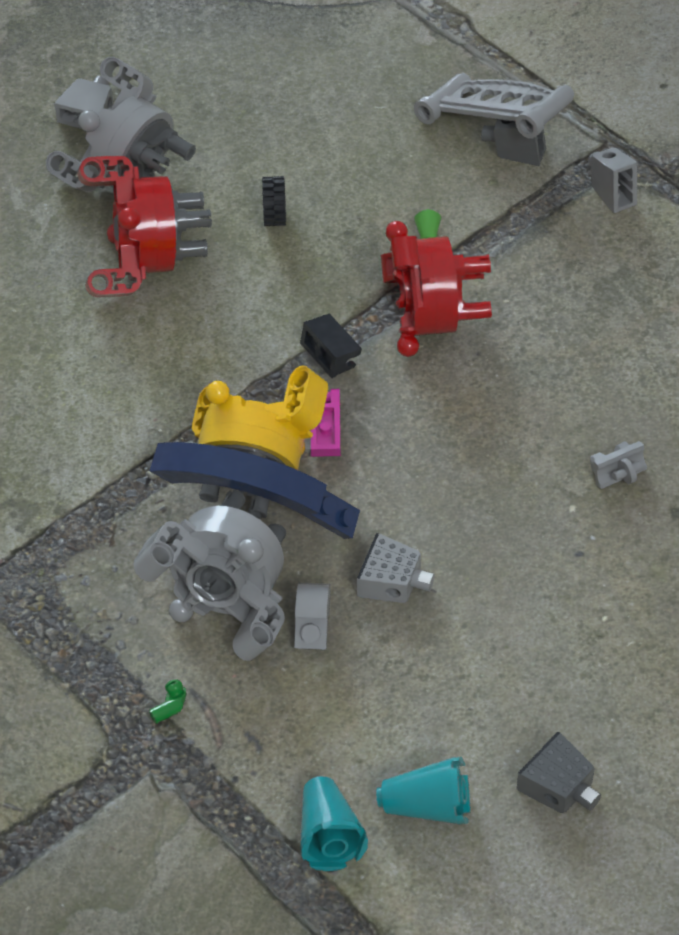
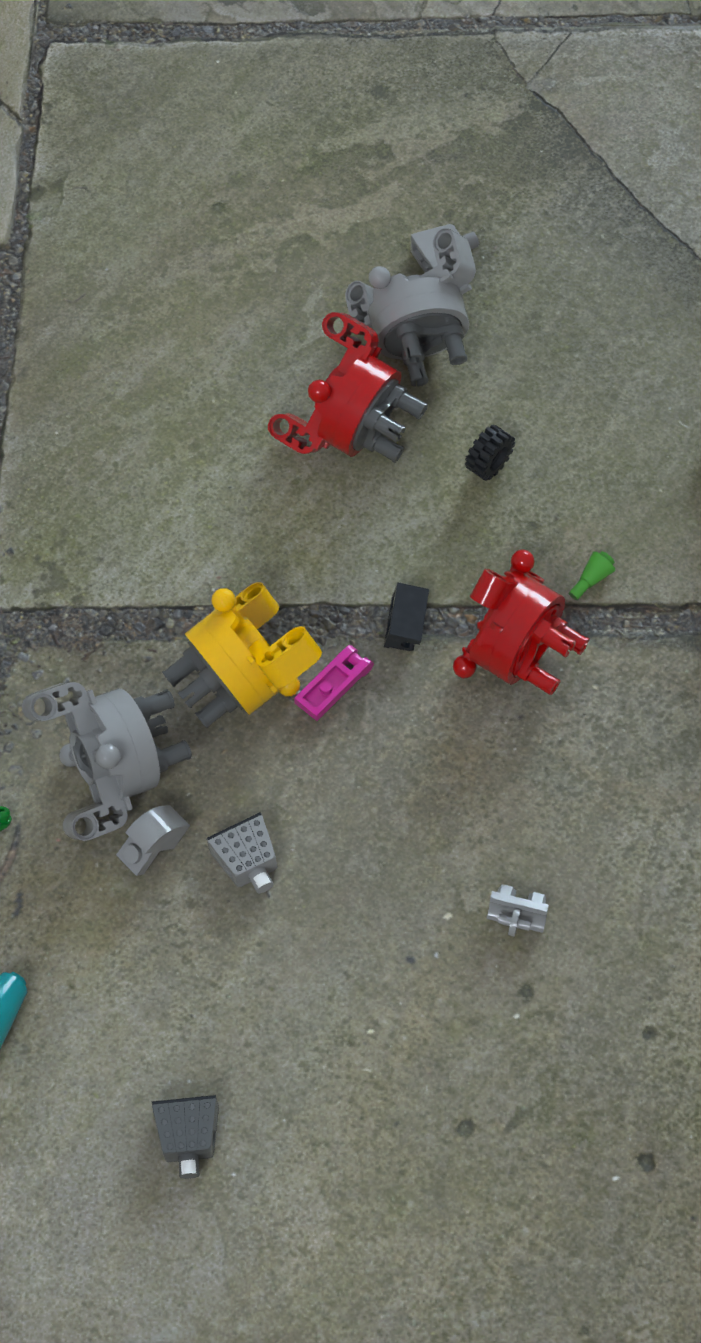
camera: 45 degrees right, 10 degrees up
(255, 475) = (197, 705): dark blue arch -> none
(428, 793) = (80, 1061): teal cone -> none

